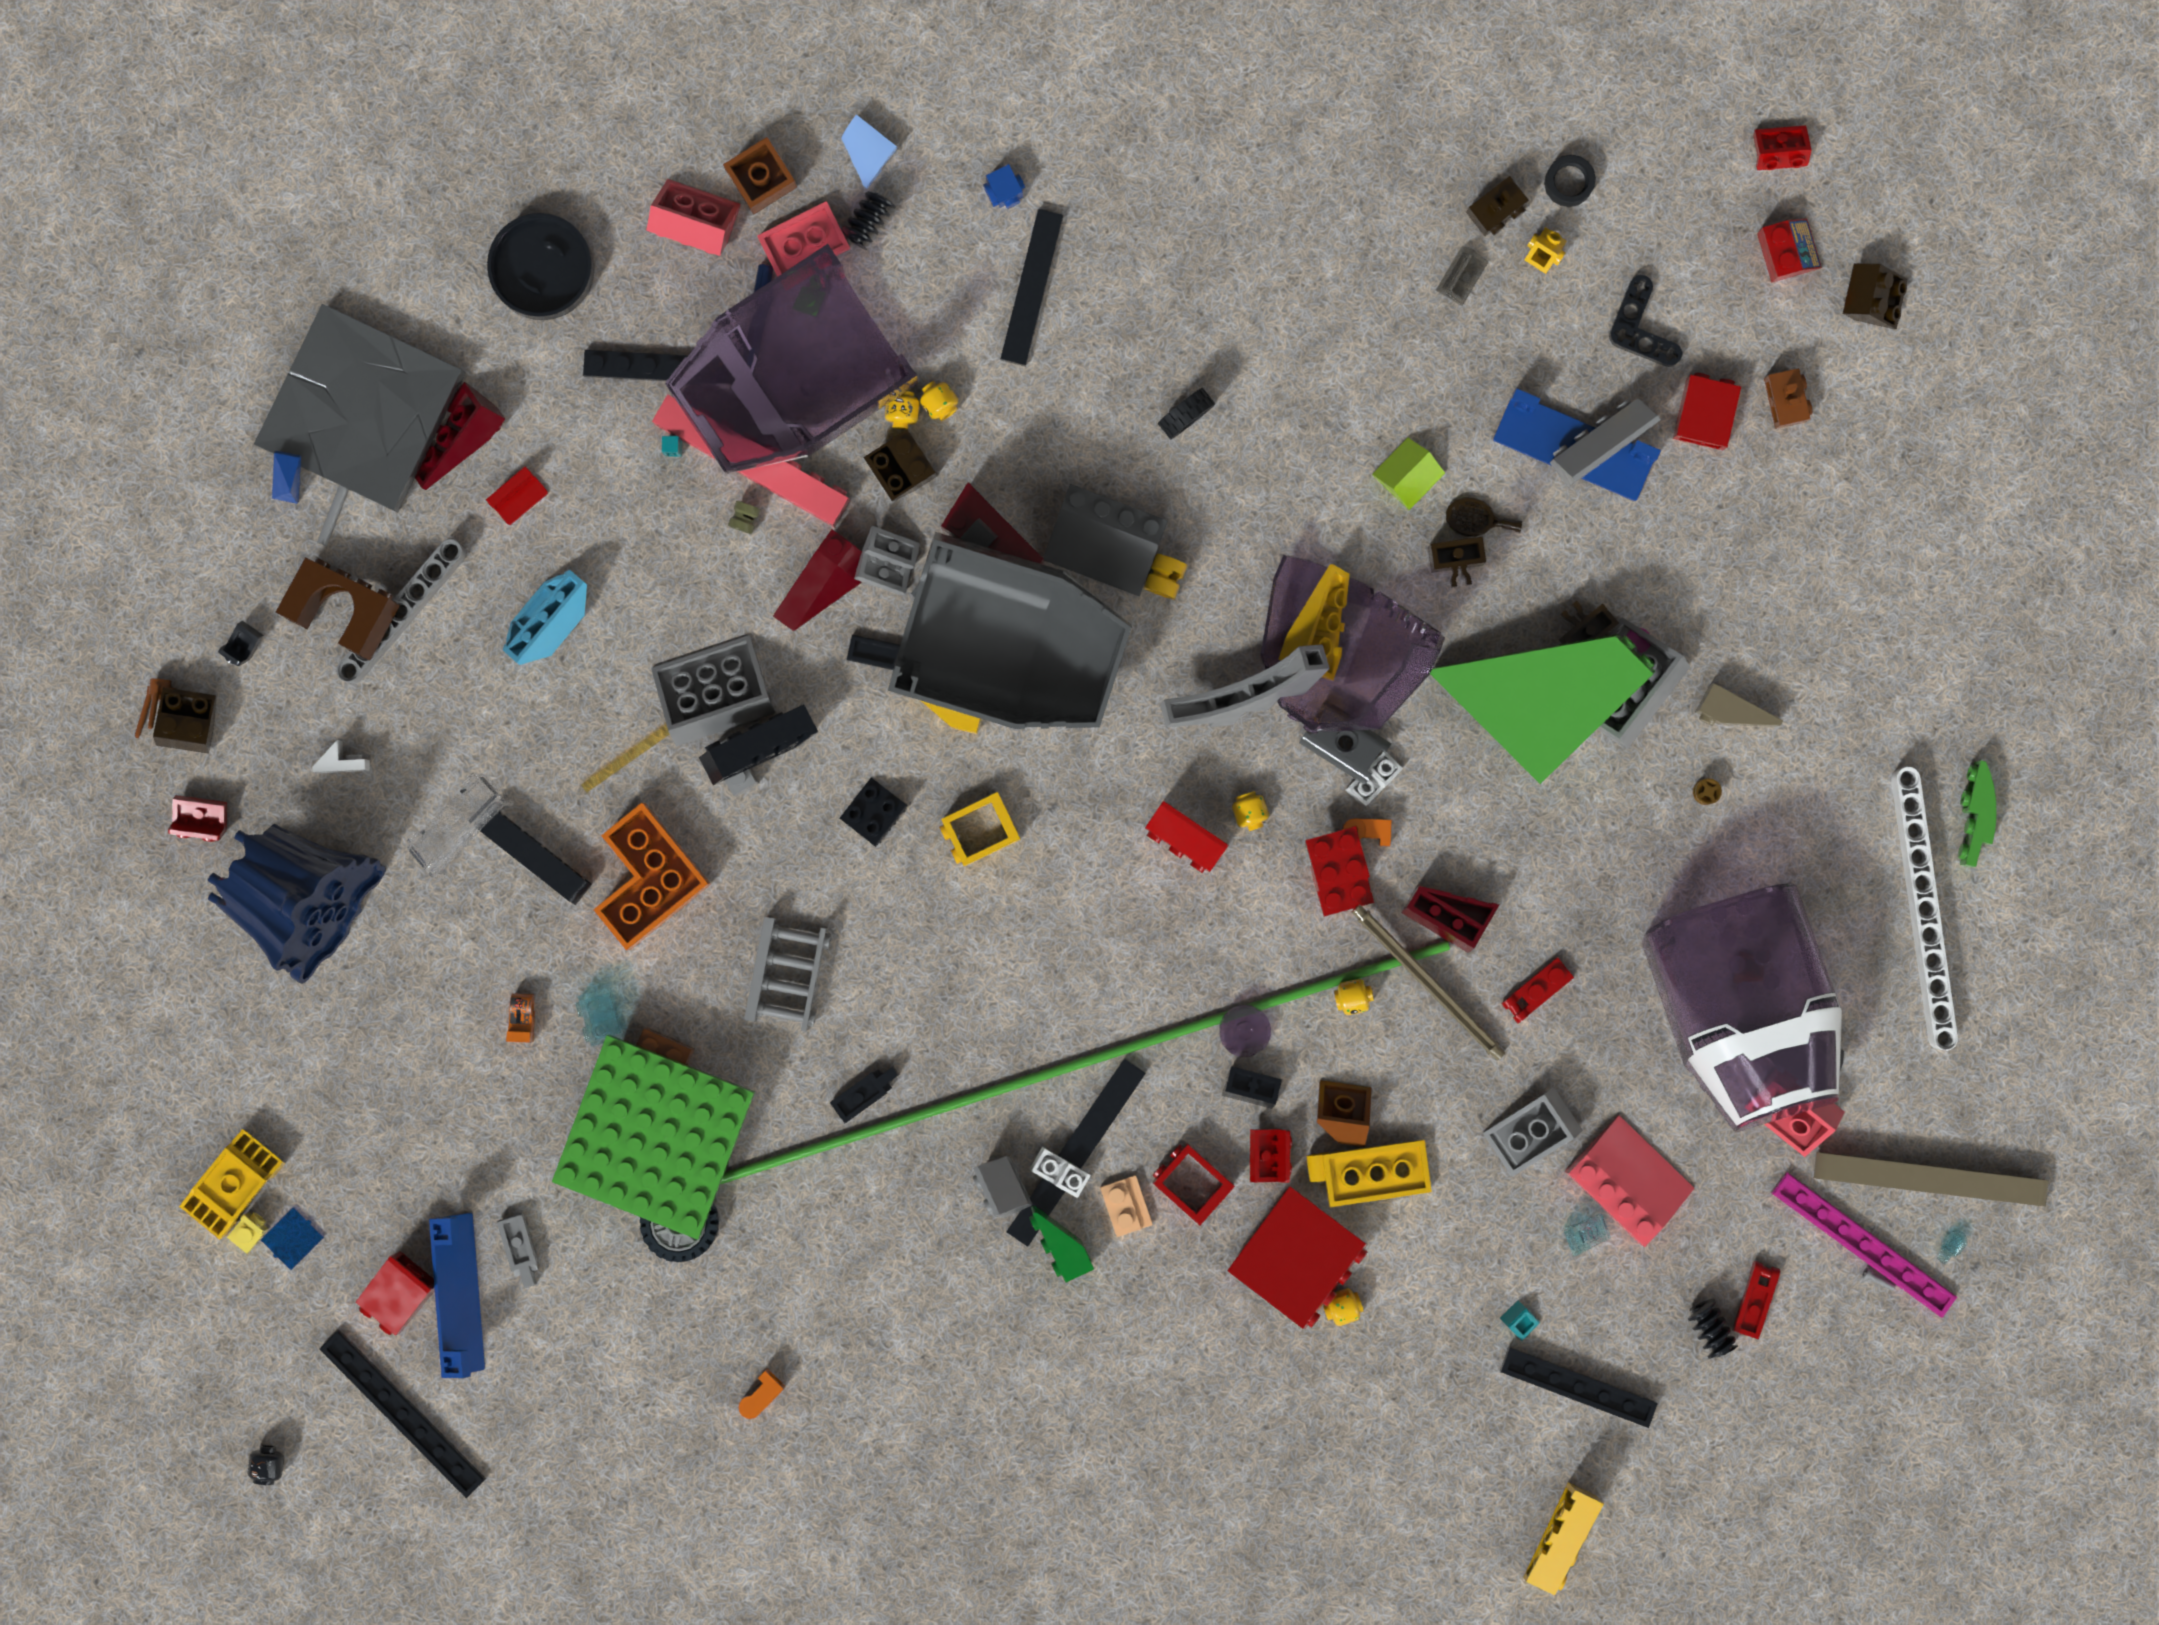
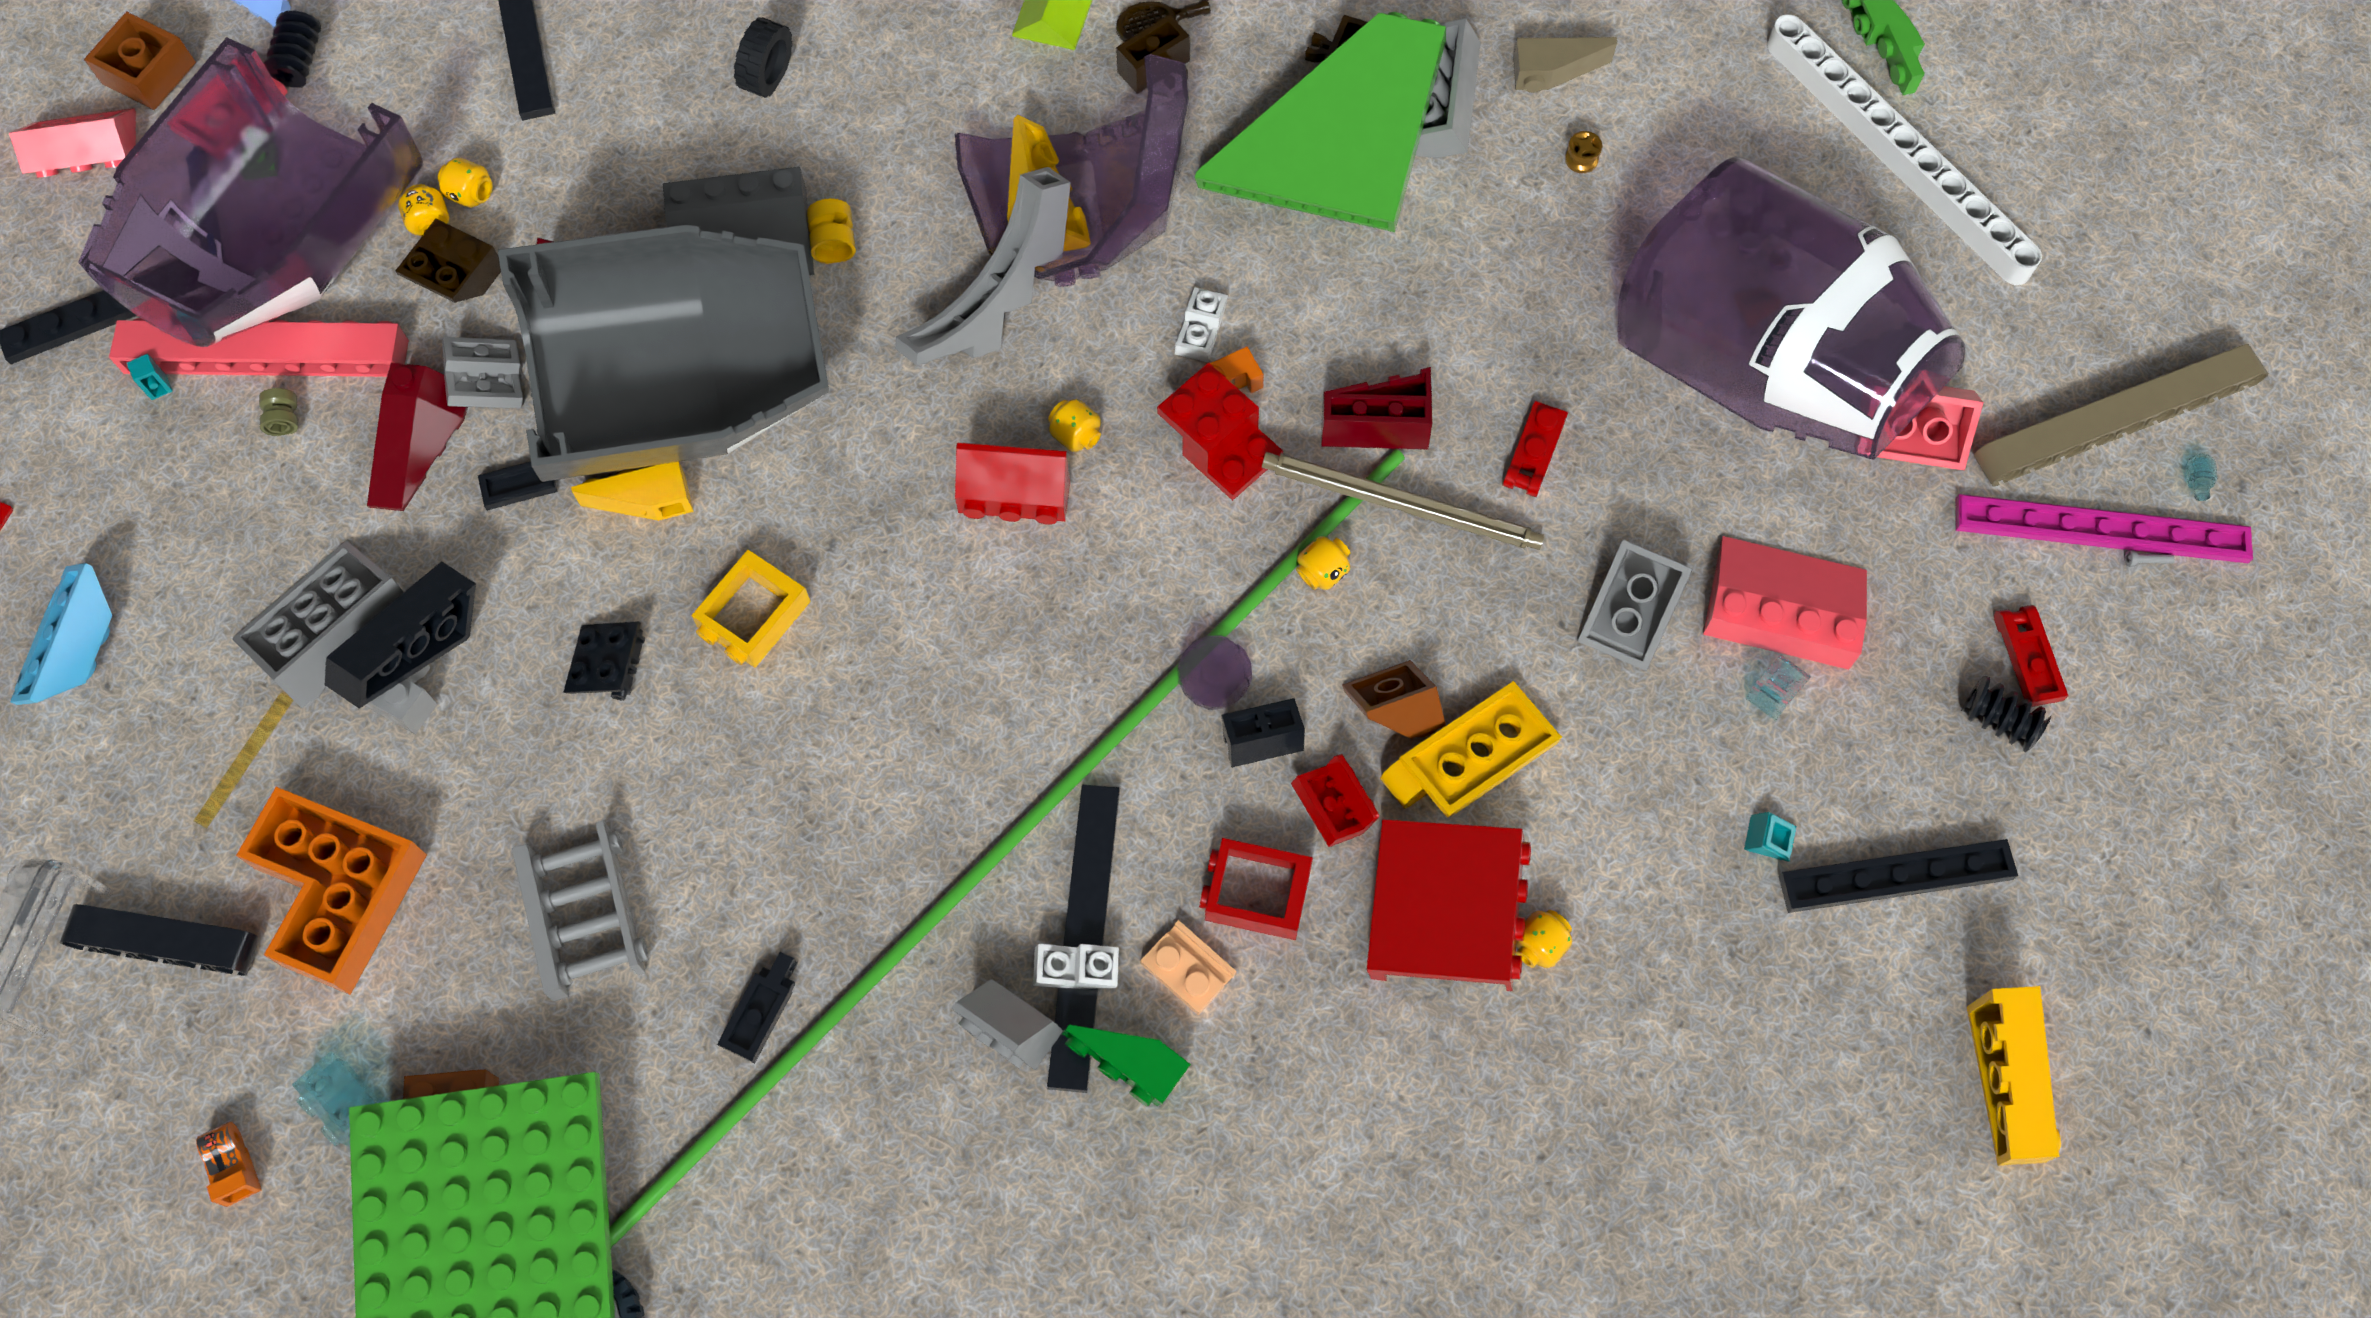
camera: 30 degrees left, 20 degrees down
(1353, 761) = (1121, 296): dark grey piece -> none

